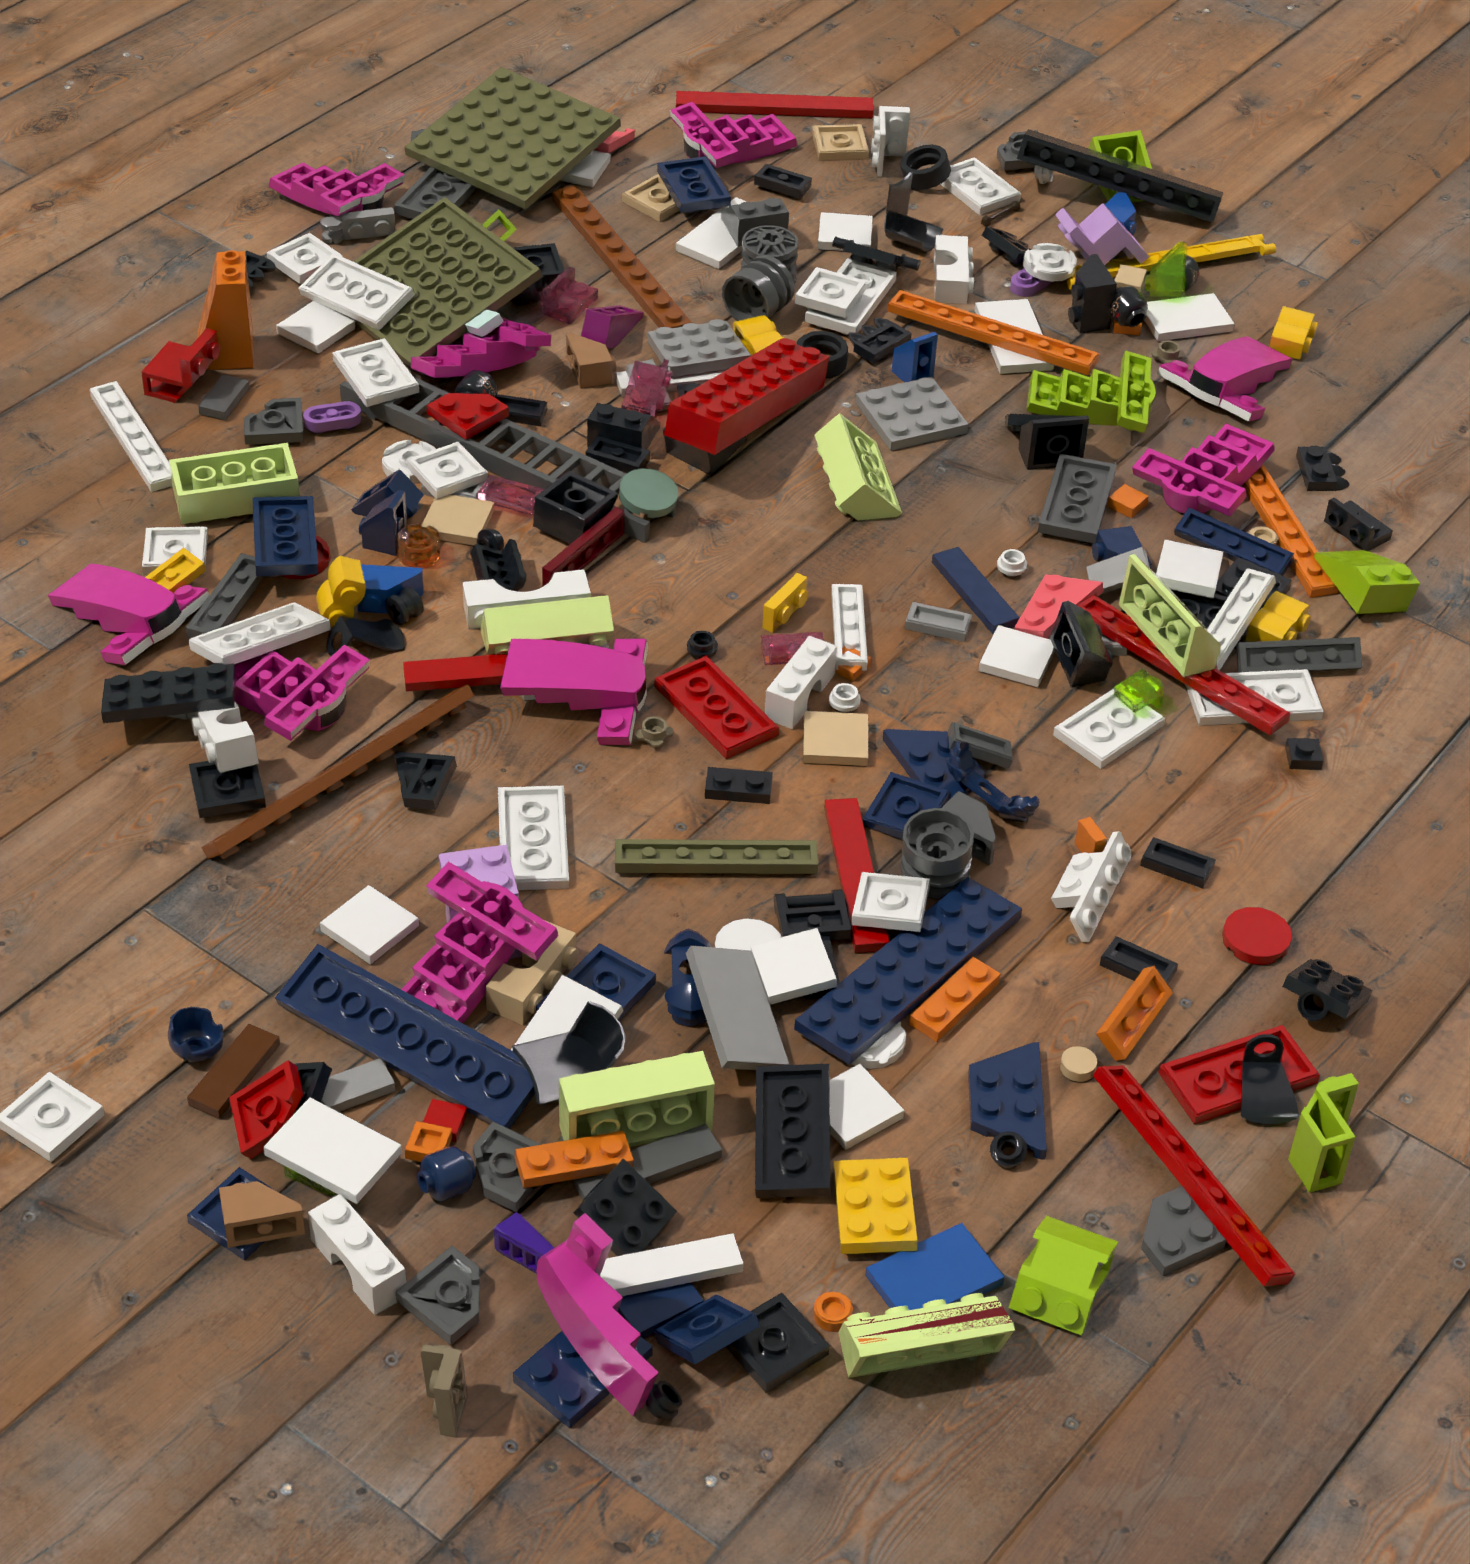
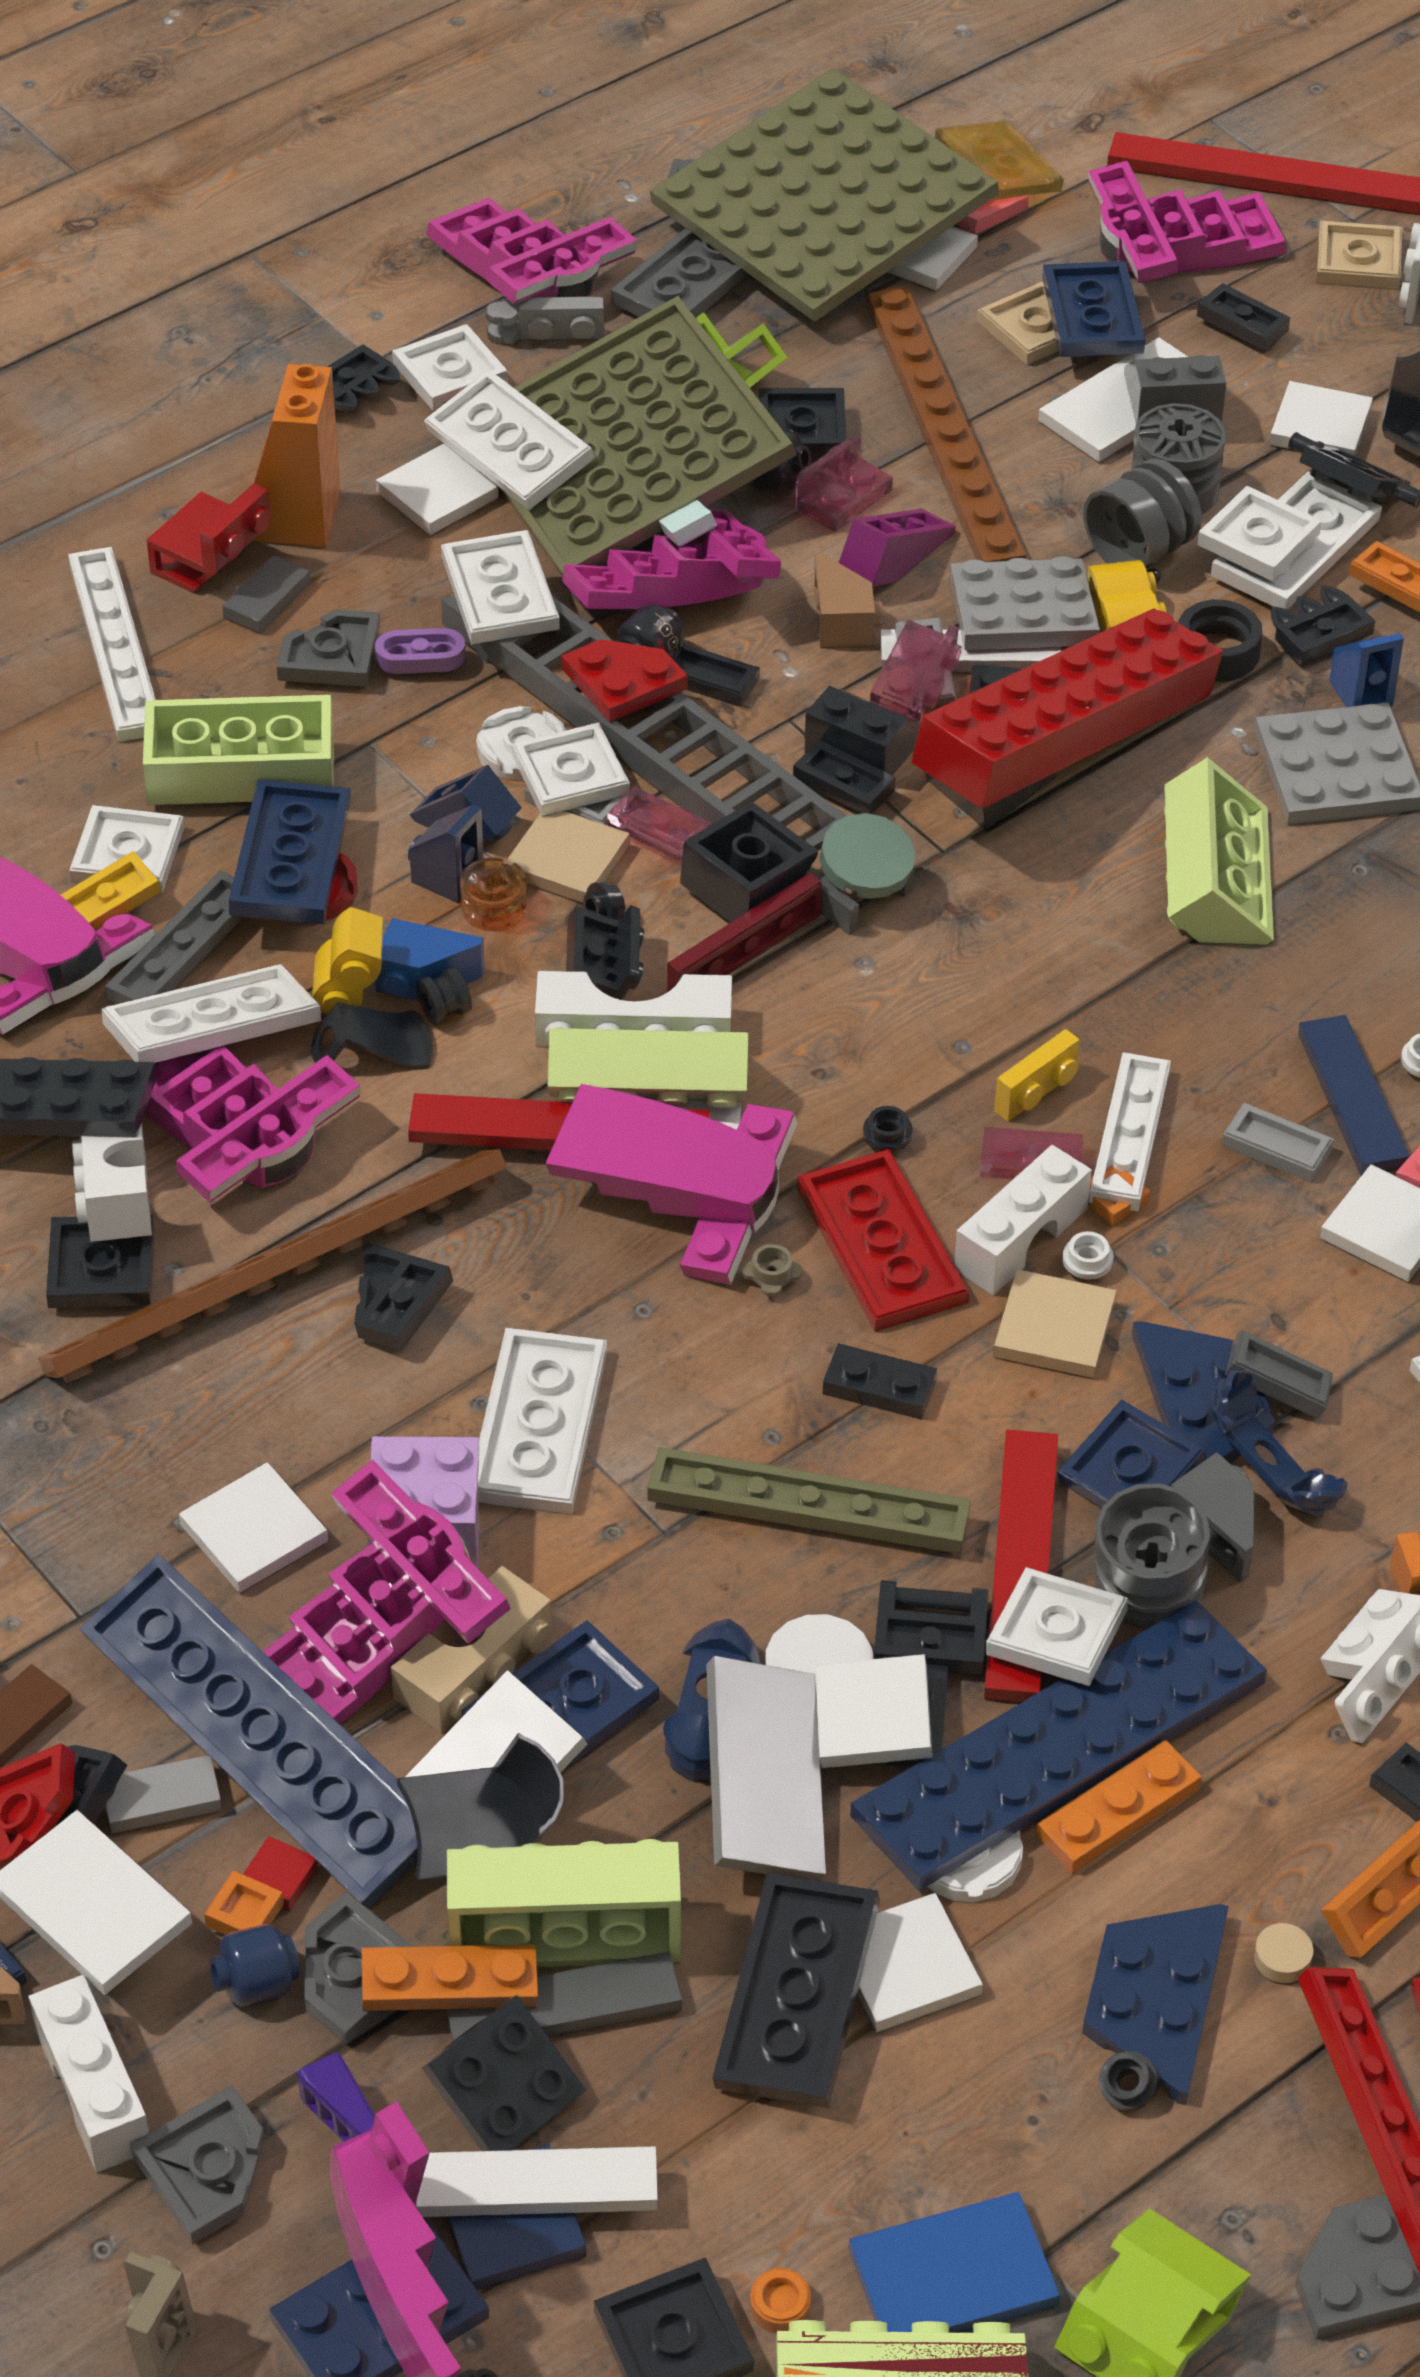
camera: 15 degrees right, 5 degrees up
(630, 116) = (1004, 156): none -> clear yellow tile
(706, 1329) = (572, 2296): dark blue tile -> none
(875, 1206) = (891, 2138): yellow plate -> none

